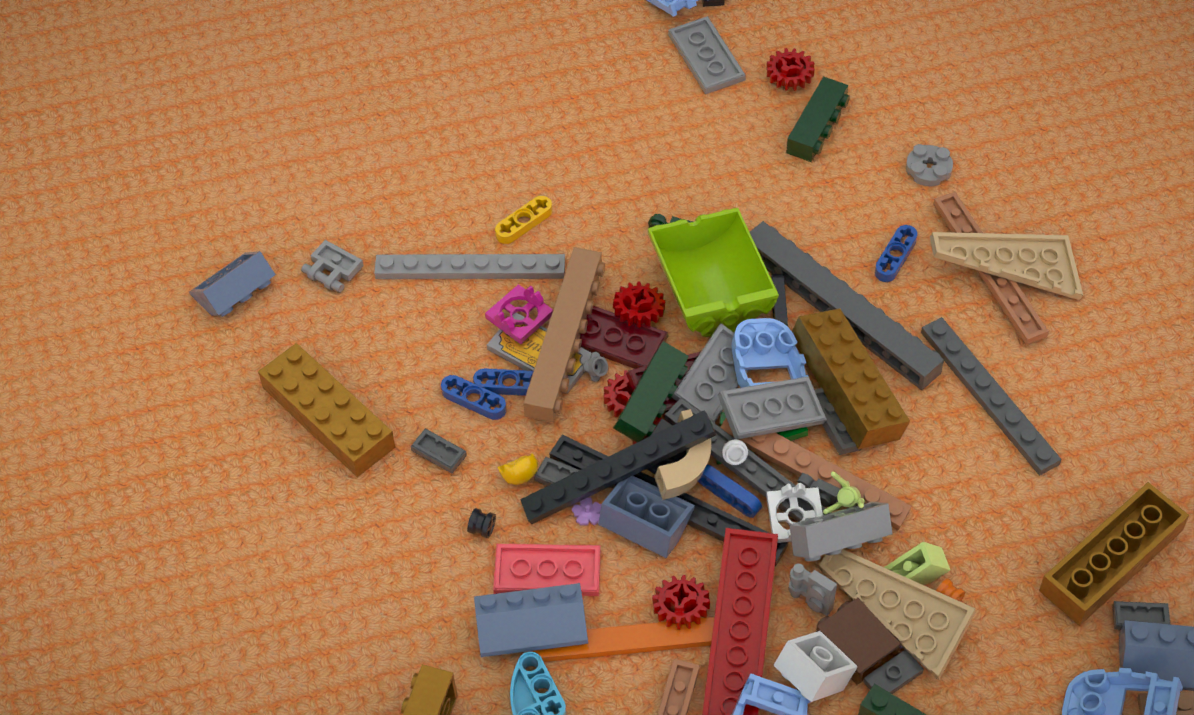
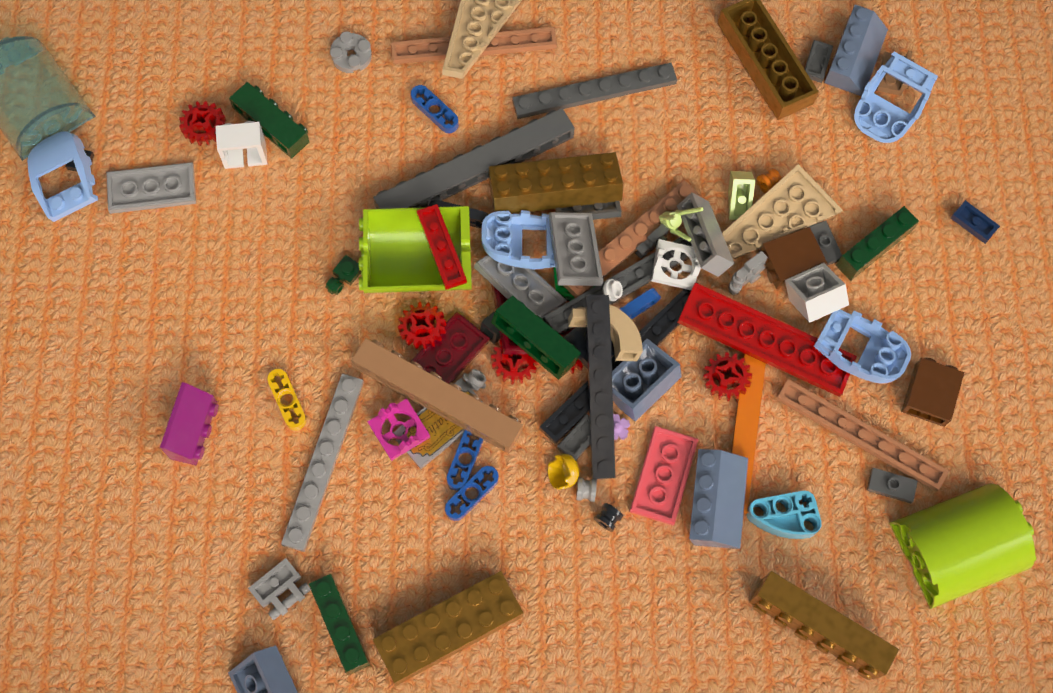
camera: 80 degrees left, 15 degrees up
(308, 318) = (339, 624): none -> dark green brick
(438, 450) = (521, 537): dark grey plate -> none
(469, 146) = (189, 425): none -> magenta slope
(506, 495) = (586, 489): none -> light grey wheel
(718, 278) = (441, 247): none -> red plate
(776, 99) = (234, 138): none -> white piece

